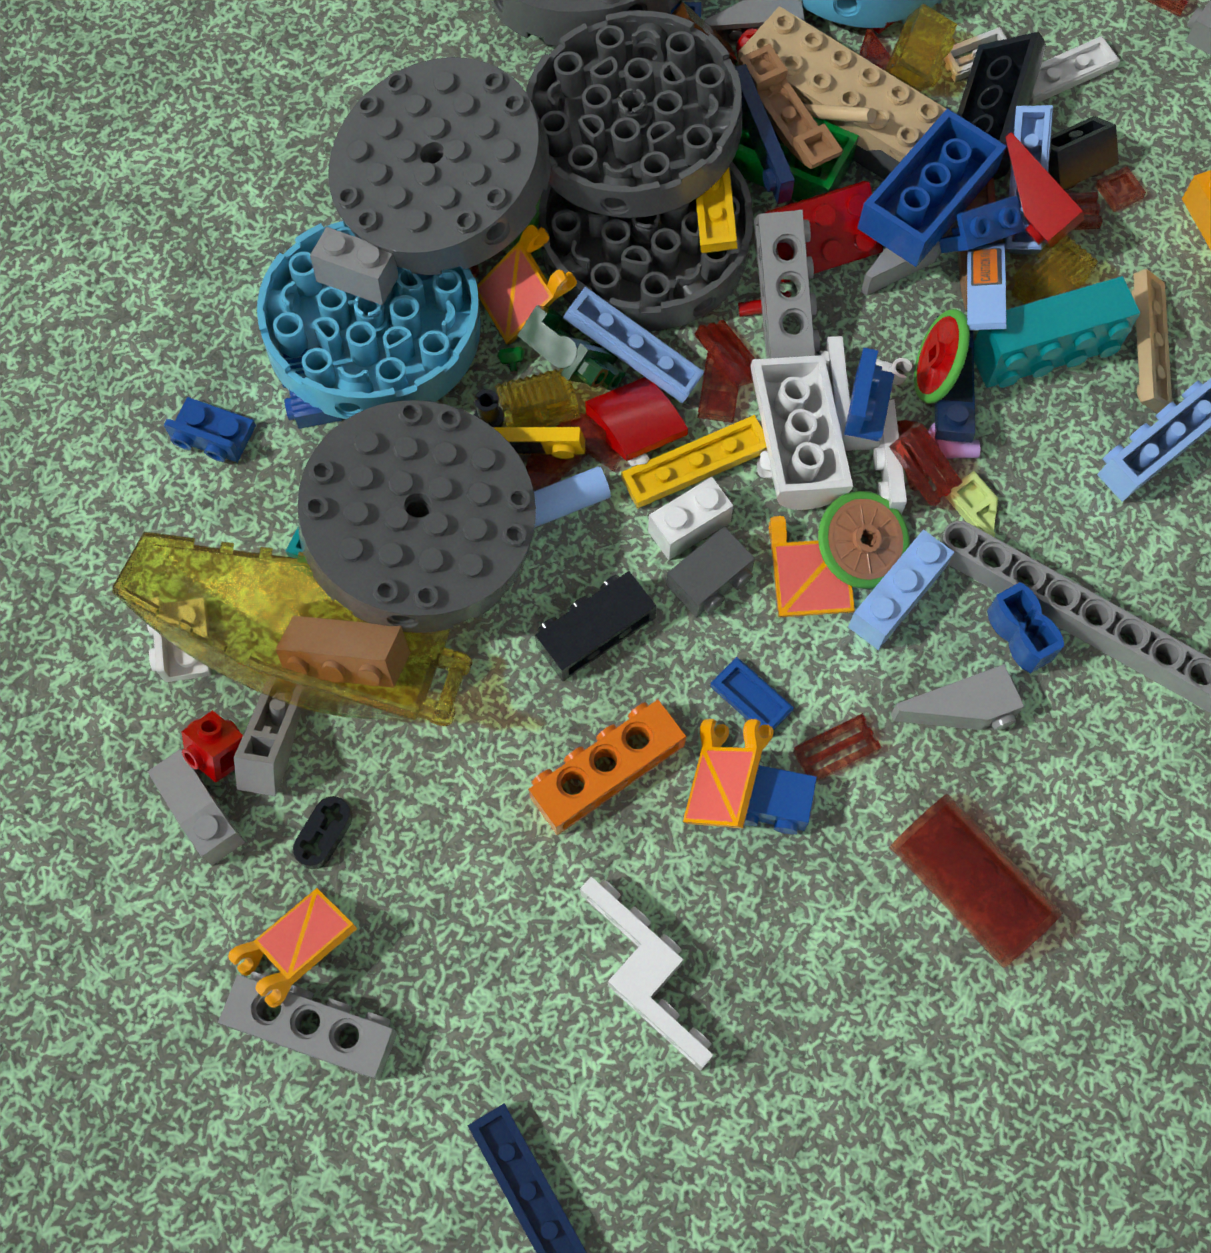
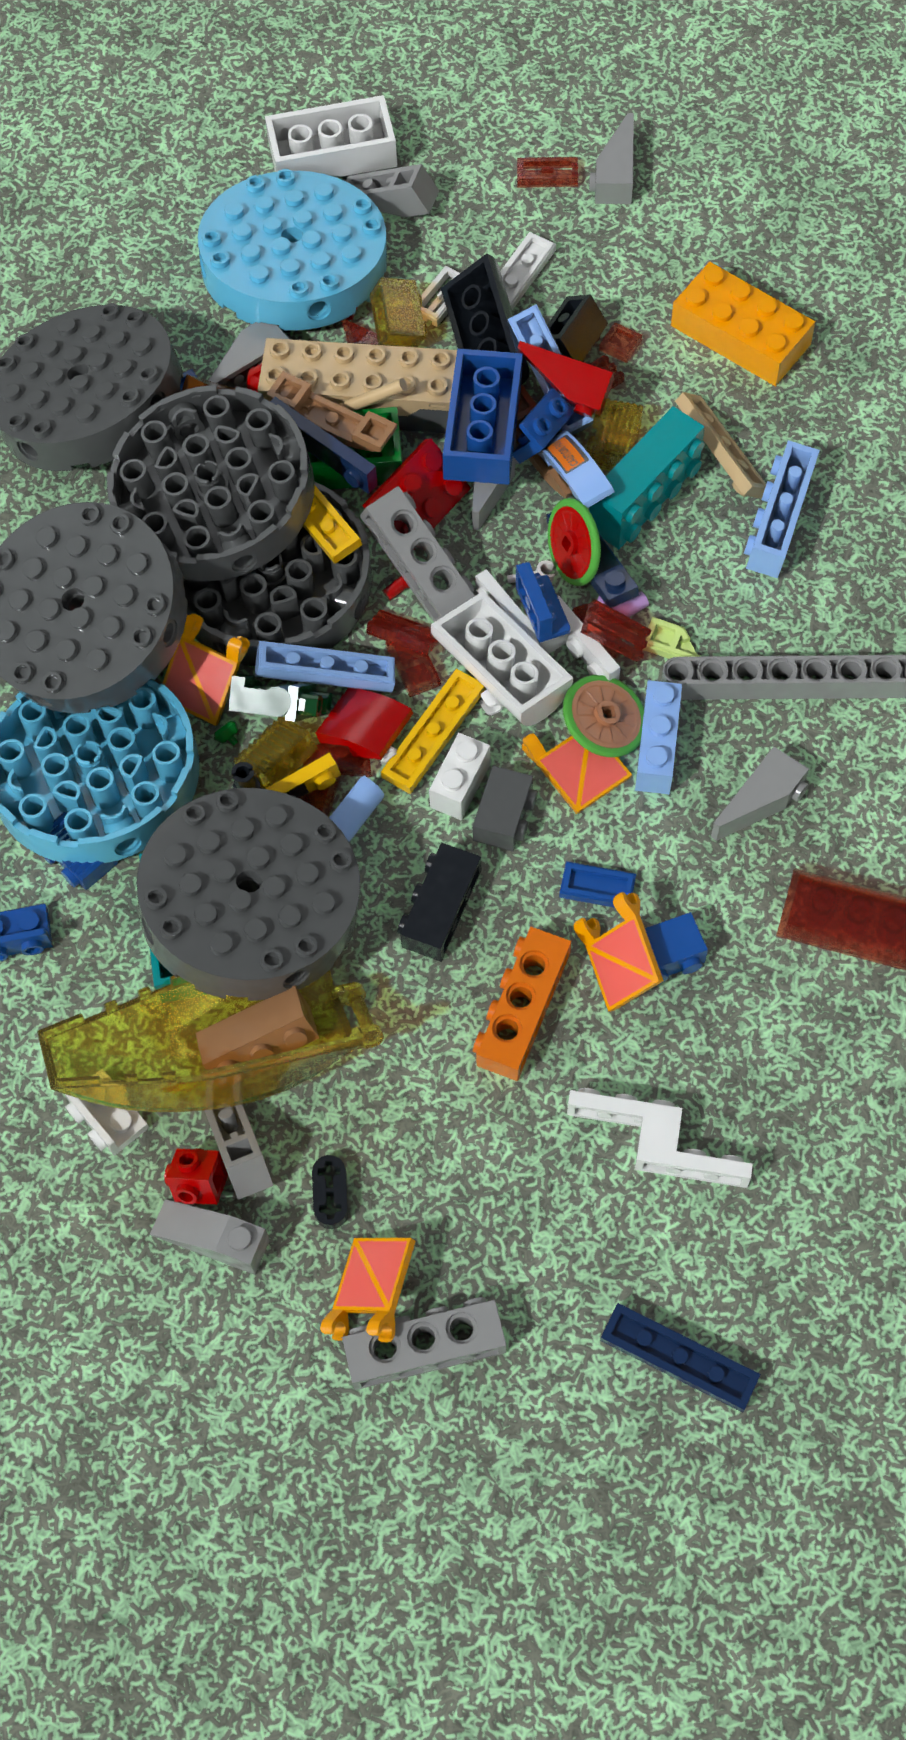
camera: 30 degrees left, 5 degrees down
(353, 266) = (60, 727): light grey brick -> none
(865, 734) = (702, 862): clear red tile -> none
(1019, 620) = (765, 709): blue brick -> none

